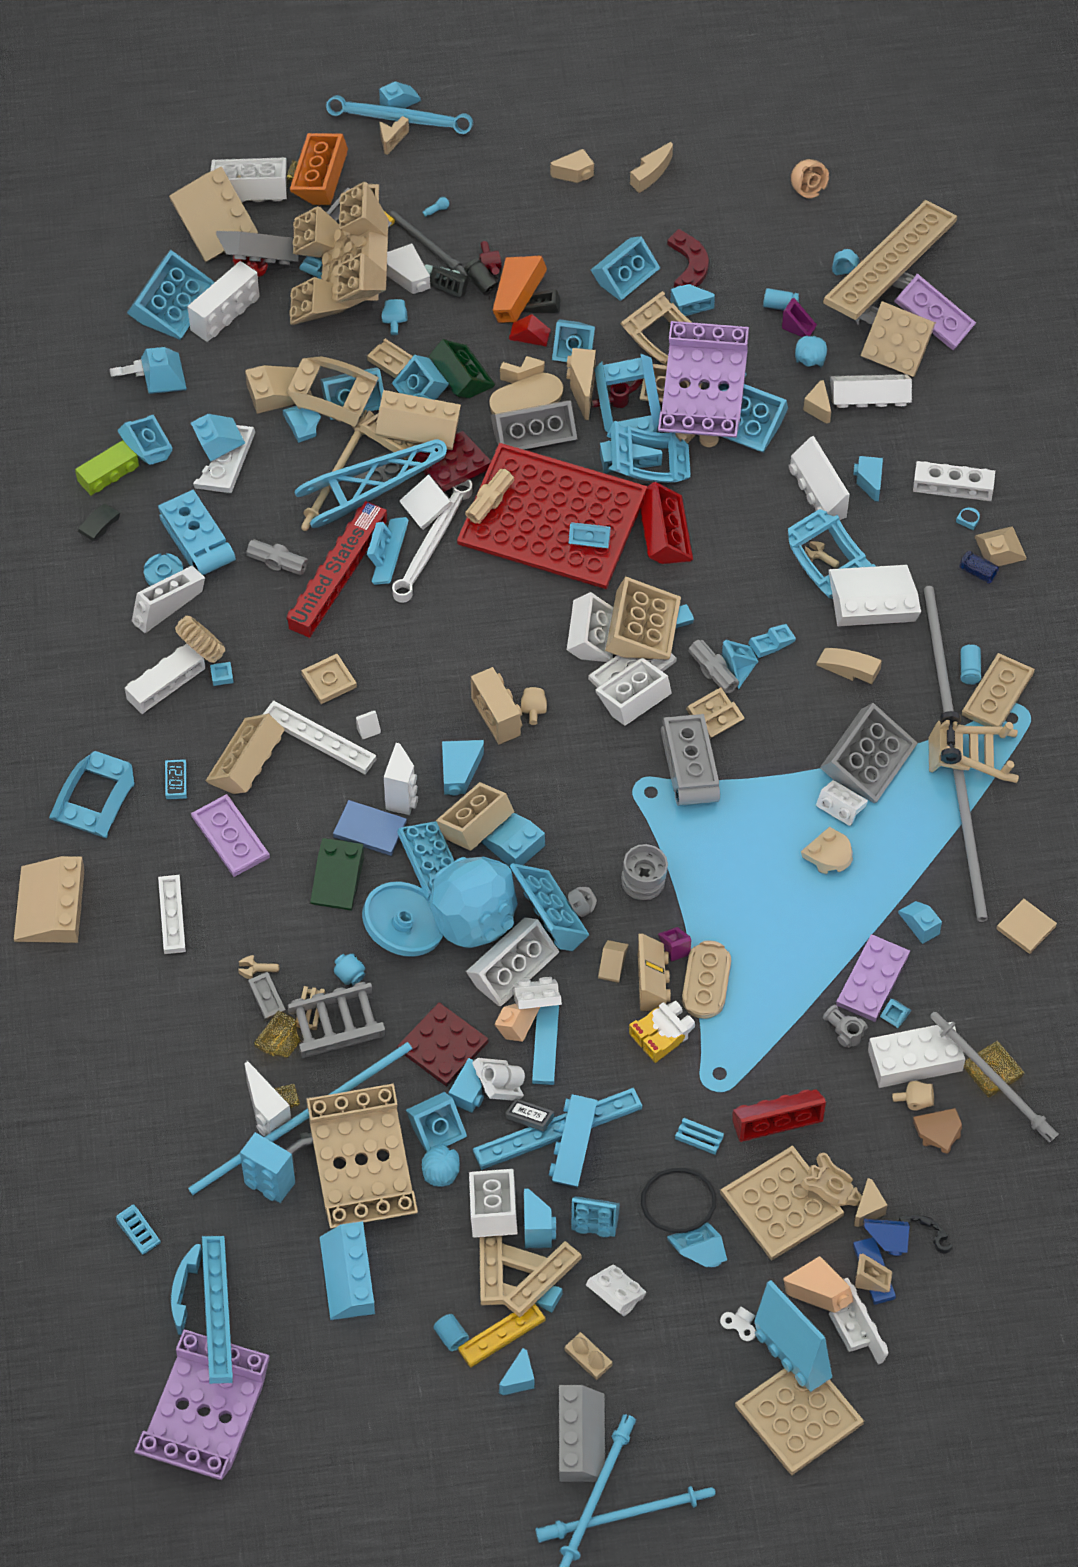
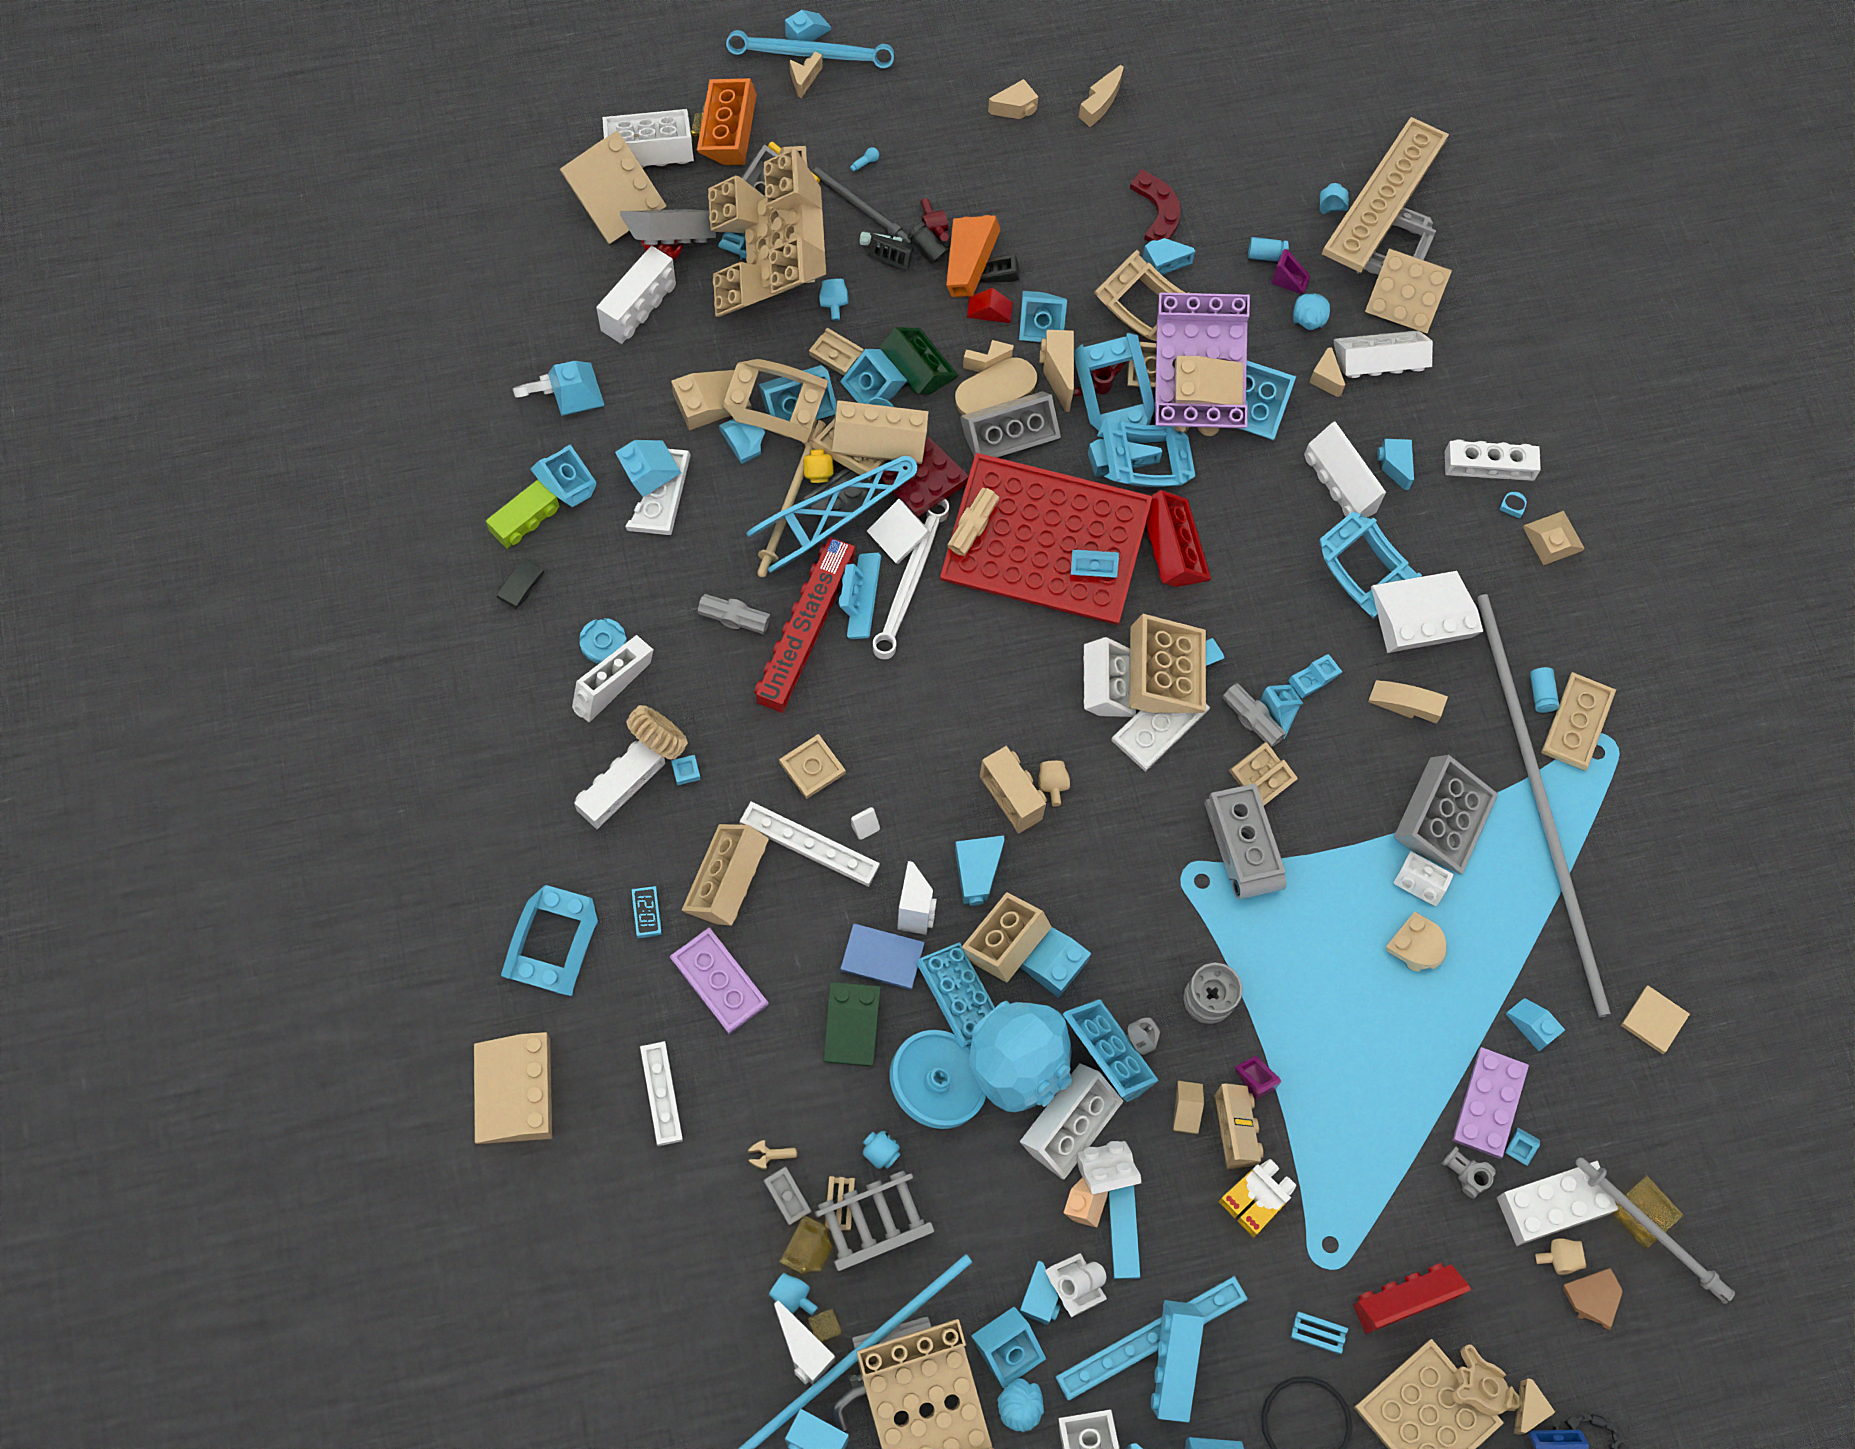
camera: 10 degrees left, 10 degrees up
(167, 295) = (573, 290): medium azure slope -> none
(195, 533) = (646, 609): medium azure hinge -> none
(265, 1067) = (792, 1294): none -> medium azure piece
(363, 446) = (818, 466): none -> yellow head
(407, 269) = (844, 240): white slope -> none
(443, 1044) = (1002, 1237): dark red plate -> none
(529, 1115) = (1118, 1326): tile -> none
(626, 268) = (1088, 221): medium azure slope -> none
(634, 691) = (1168, 756): white slope -> none
(706, 396) = (1208, 381): none -> tan slope
(706, 979) = (1299, 1123): tan tile -> none
(809, 178) = (1279, 98): light nougat cylinder -> none
(819, 546) = (1354, 562): tan bar -> none
(929, 303) = (1436, 245): lavender tile -> none
(950, 733) = (1526, 802): tan hand -> none
(979, 567) = (1535, 566): clear blue piece -> none

